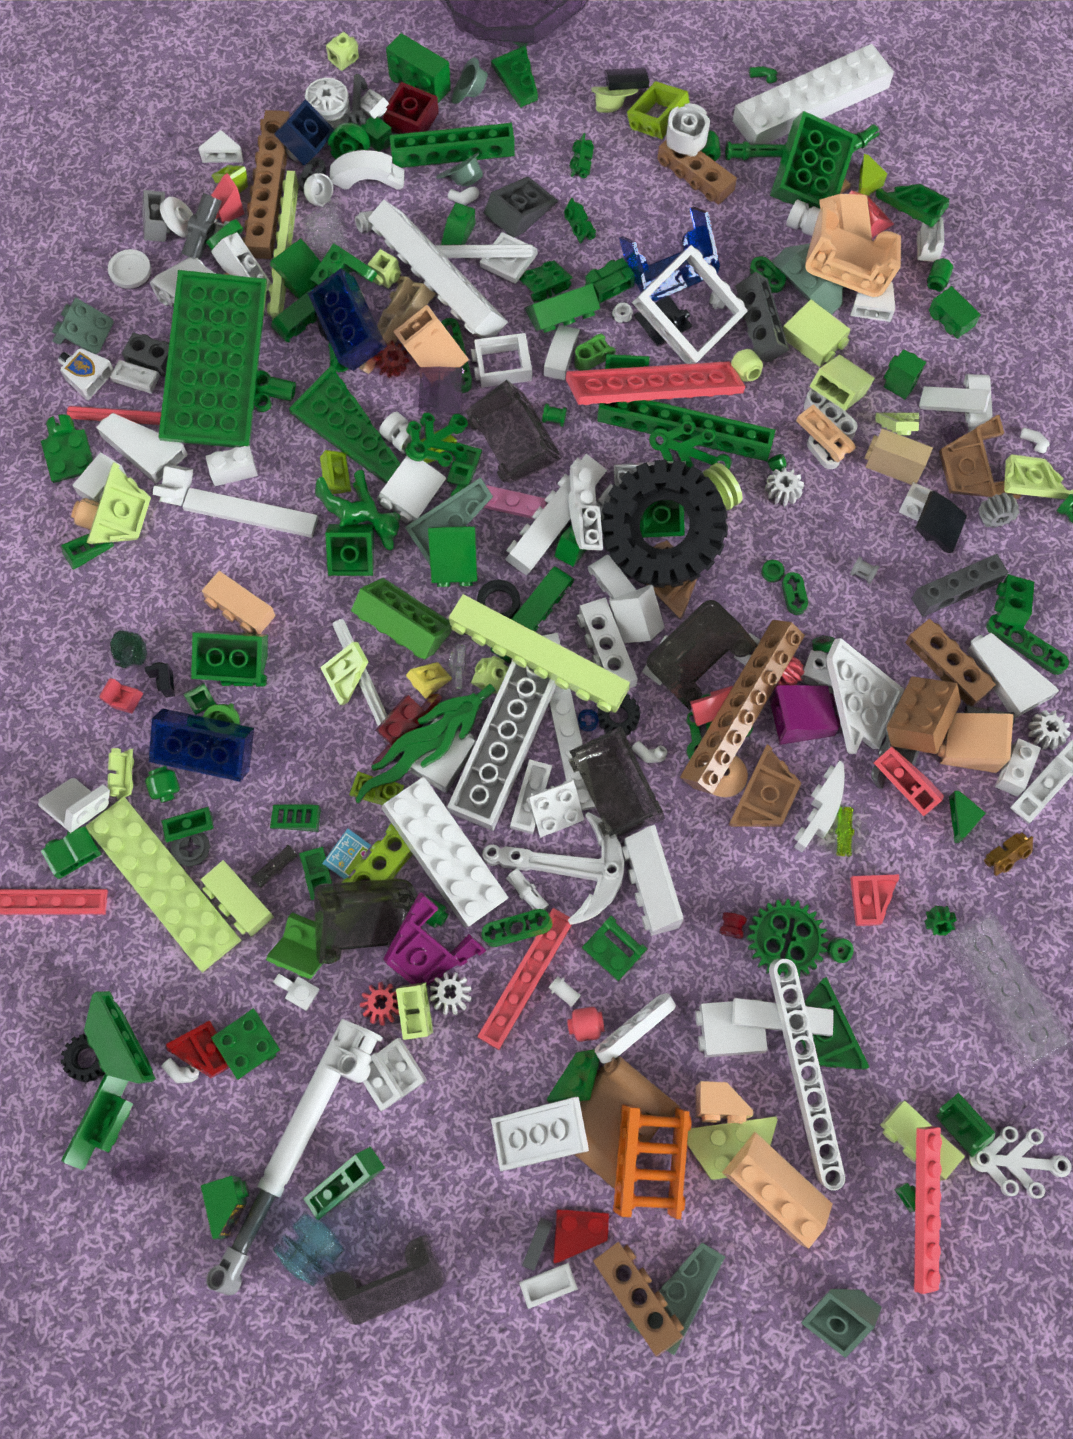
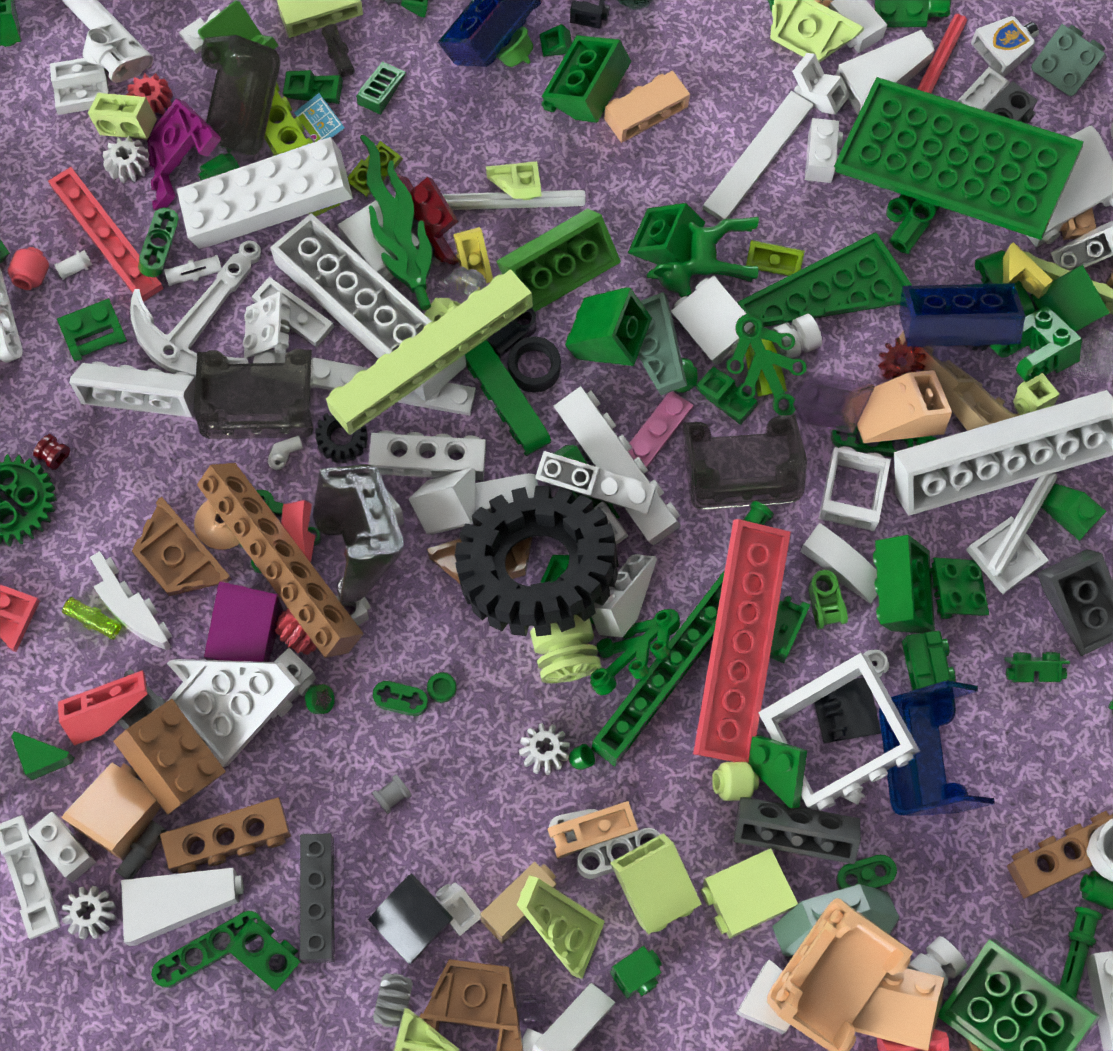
camera: 110 degrees right, 0 degrees up
(290, 298) = (1022, 268): none -> light yellow slope
(728, 336) = (779, 767): none -> green wing

